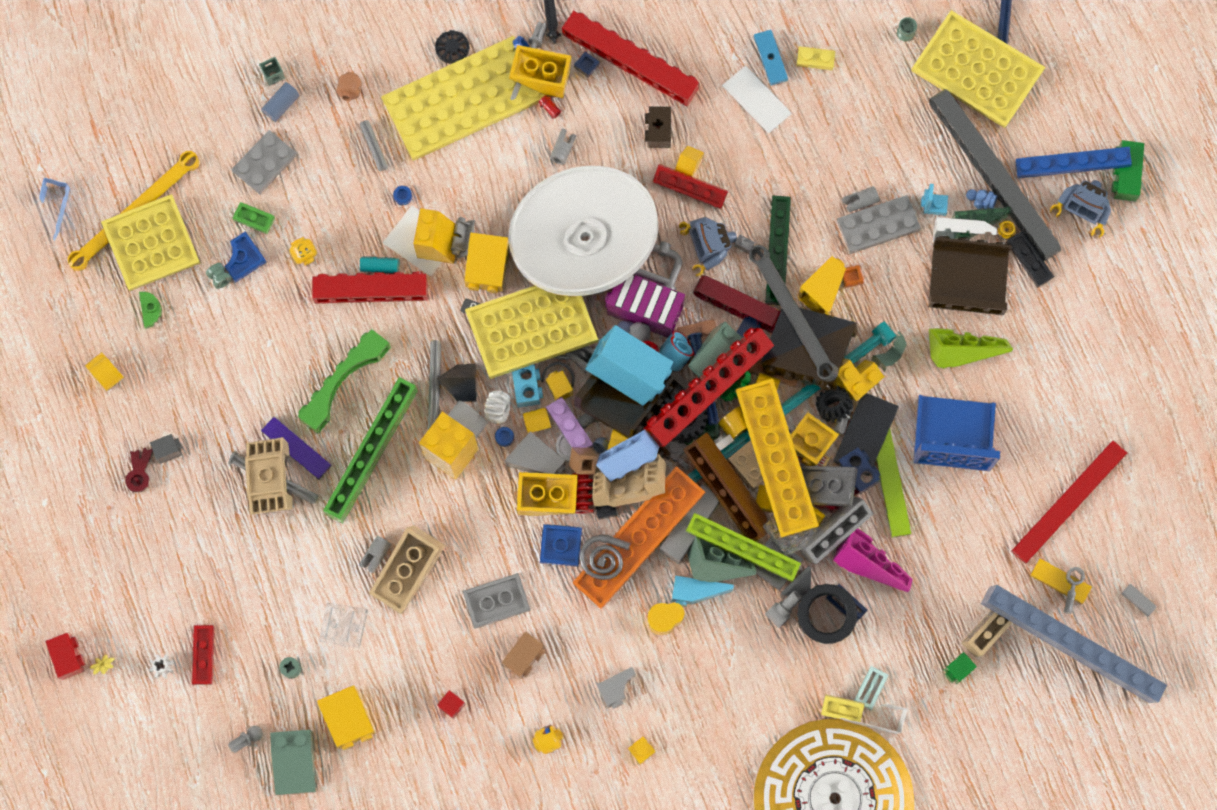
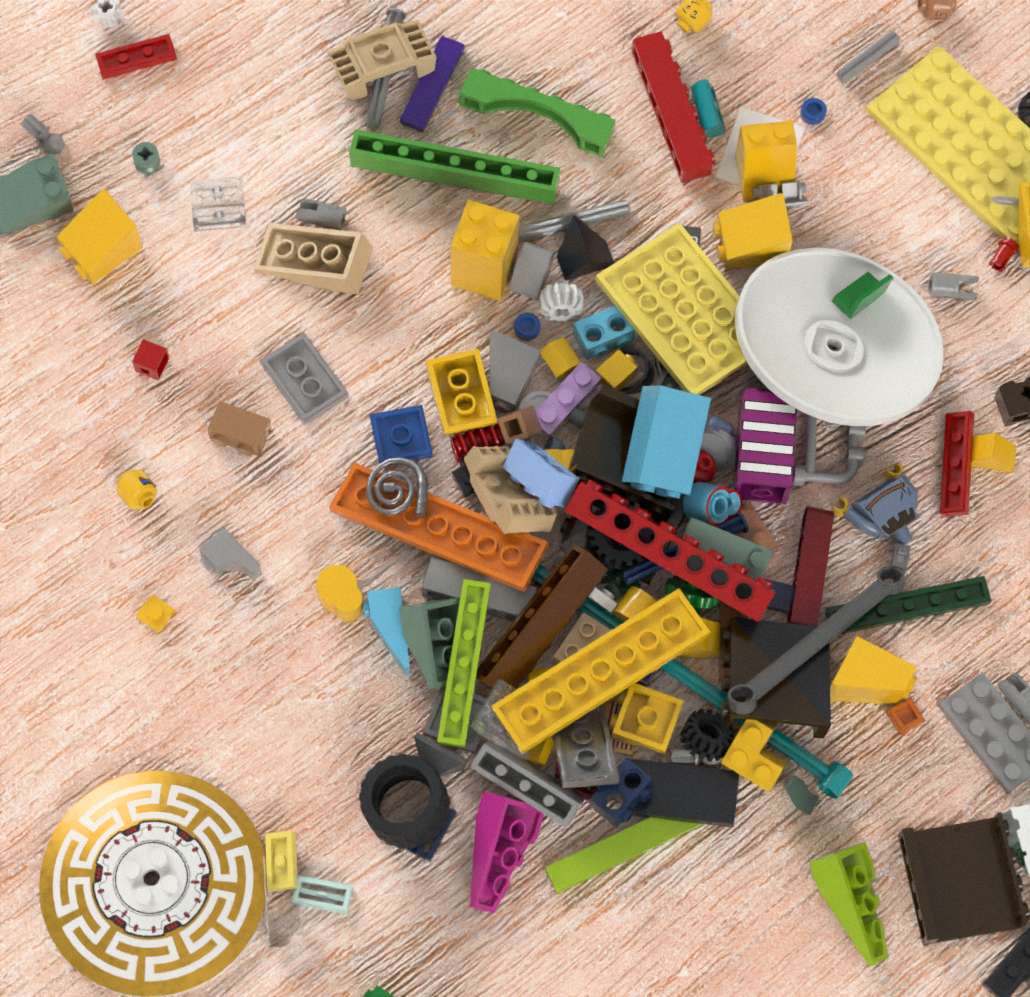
camera: 70 degrees right, 5 degrees down
(552, 207) = (861, 294): none -> green panel
(781, 611) = (392, 741): light grey pin -> none
(955, 434) = (721, 915): blue bracket -> none

